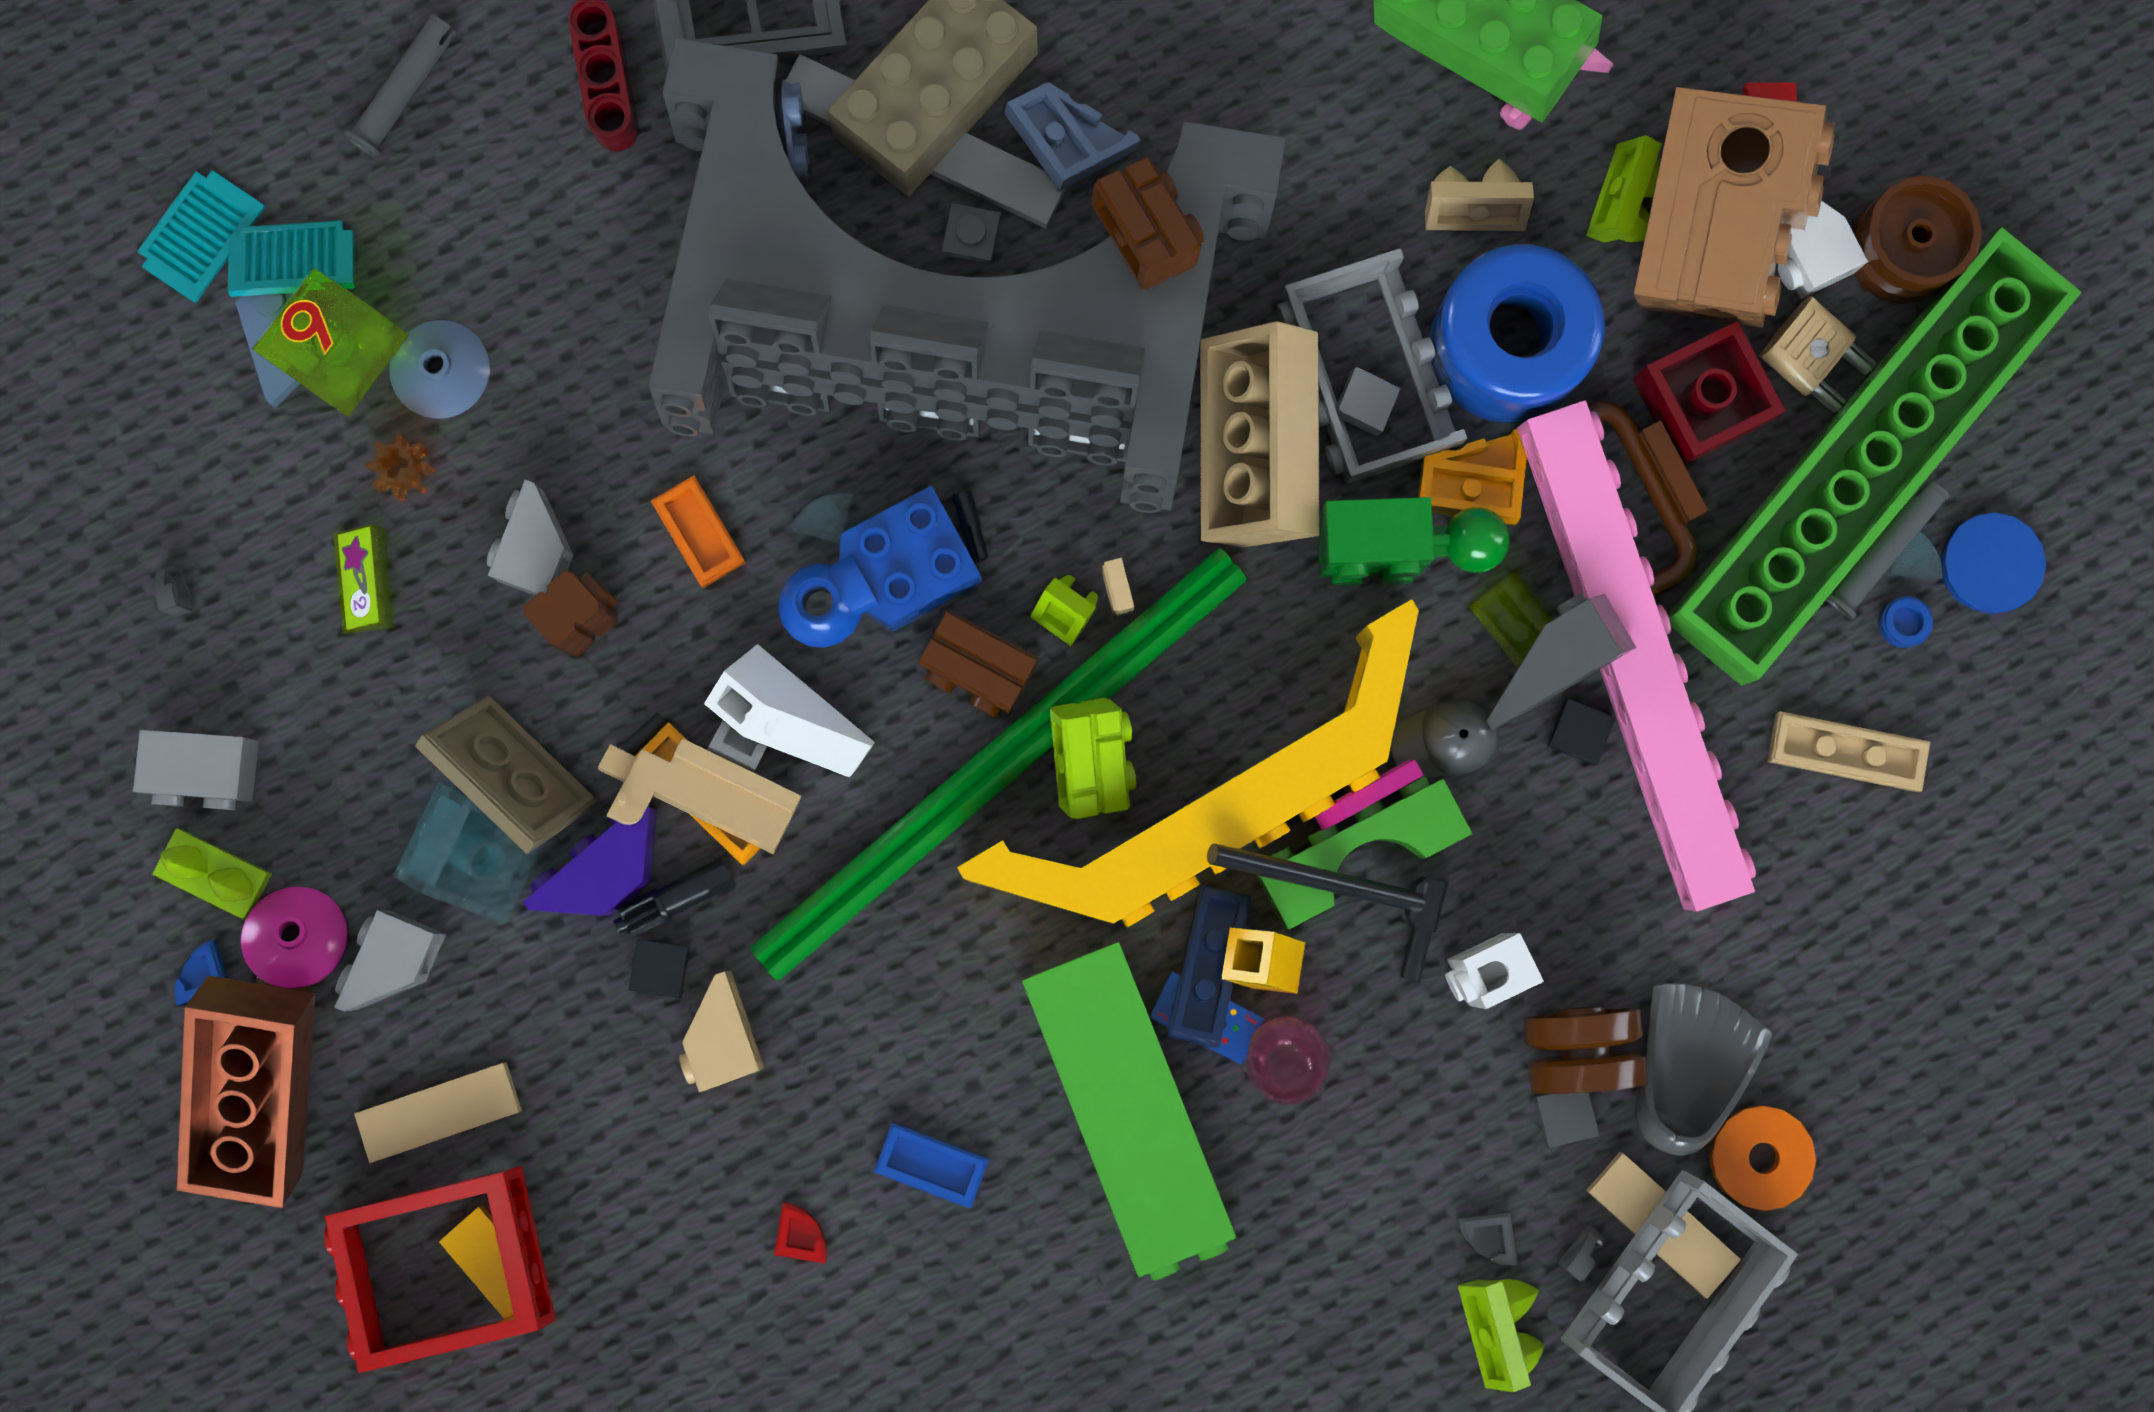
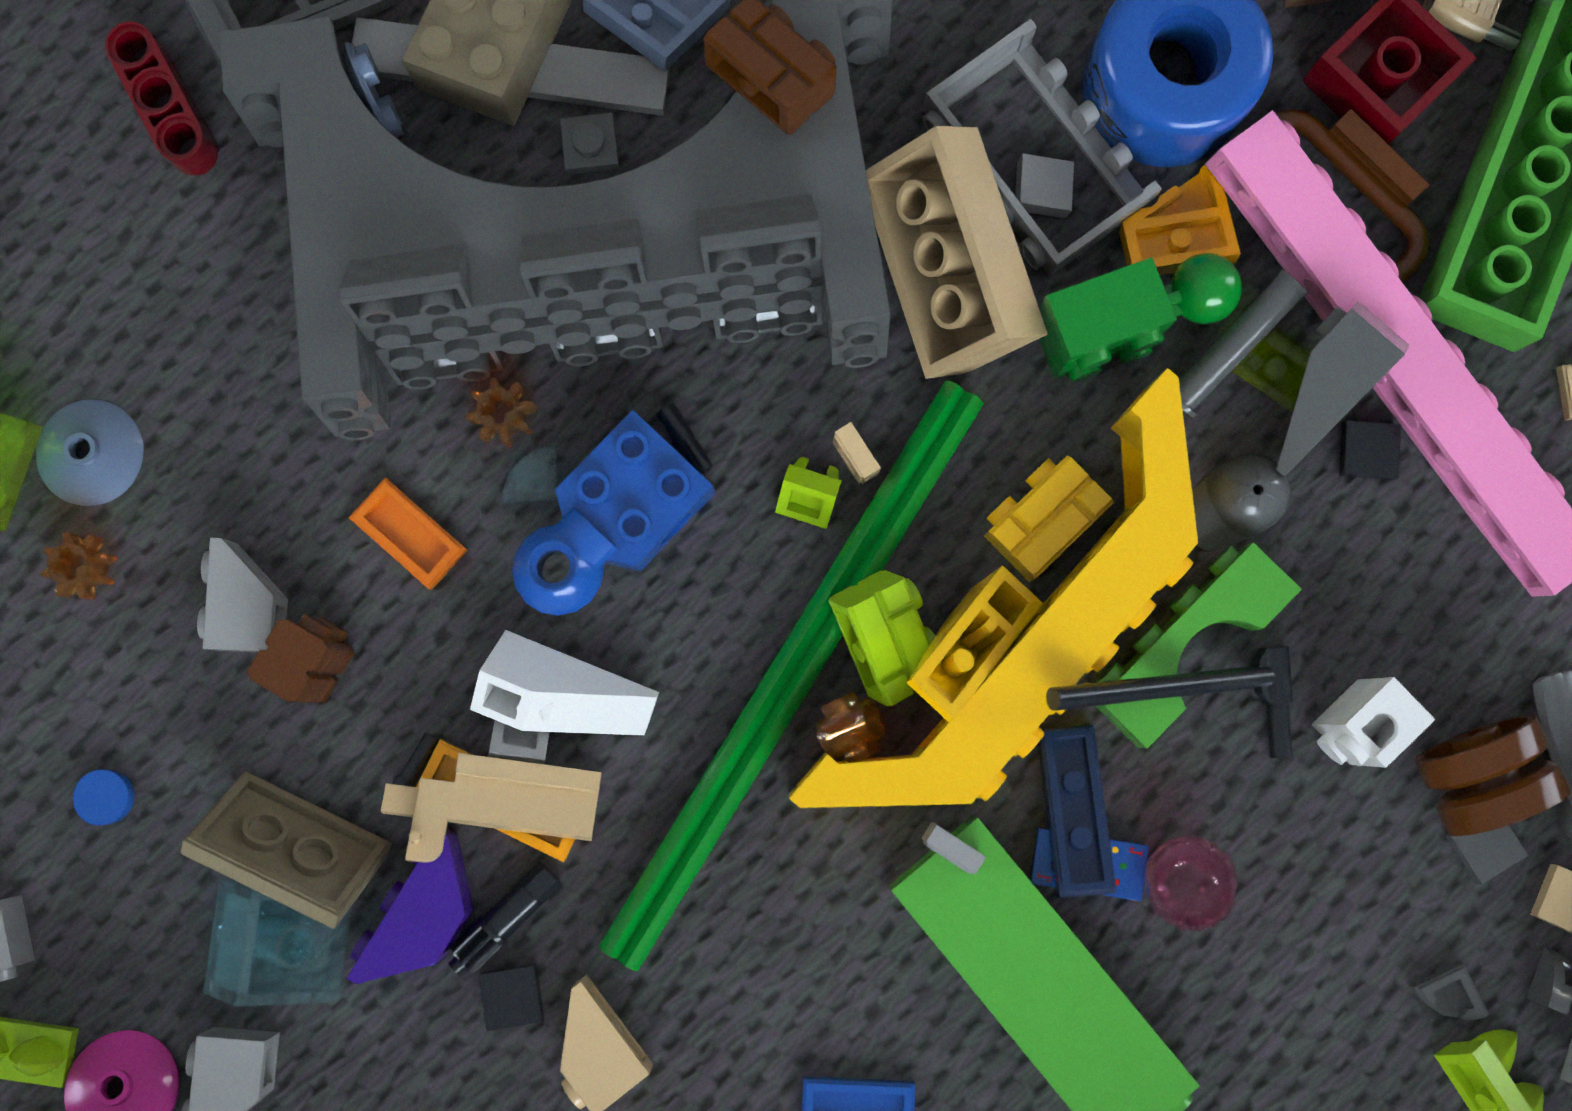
camera: 15 degrees left, 0 degrees up
(357, 678) = (103, 797): none -> blue tile
(363, 579) = (78, 693): slope -> none
(824, 460) = (514, 419): none -> clear orange gear
(978, 664) = (738, 578): reddish brown brick -> none
(1034, 828) = (851, 728): none -> clear orange gear
(1086, 959) = (952, 849): none -> light grey tile
(1163, 785) = (973, 641): none -> yellow slope
(1263, 960) = (1131, 788): yellow brick -> none
(1269, 698) = (1047, 517): none -> yellow brick
(1380, 788) = (1171, 599): dark pink tile -> none
(1488, 597) = (1239, 340): none -> dark grey pin

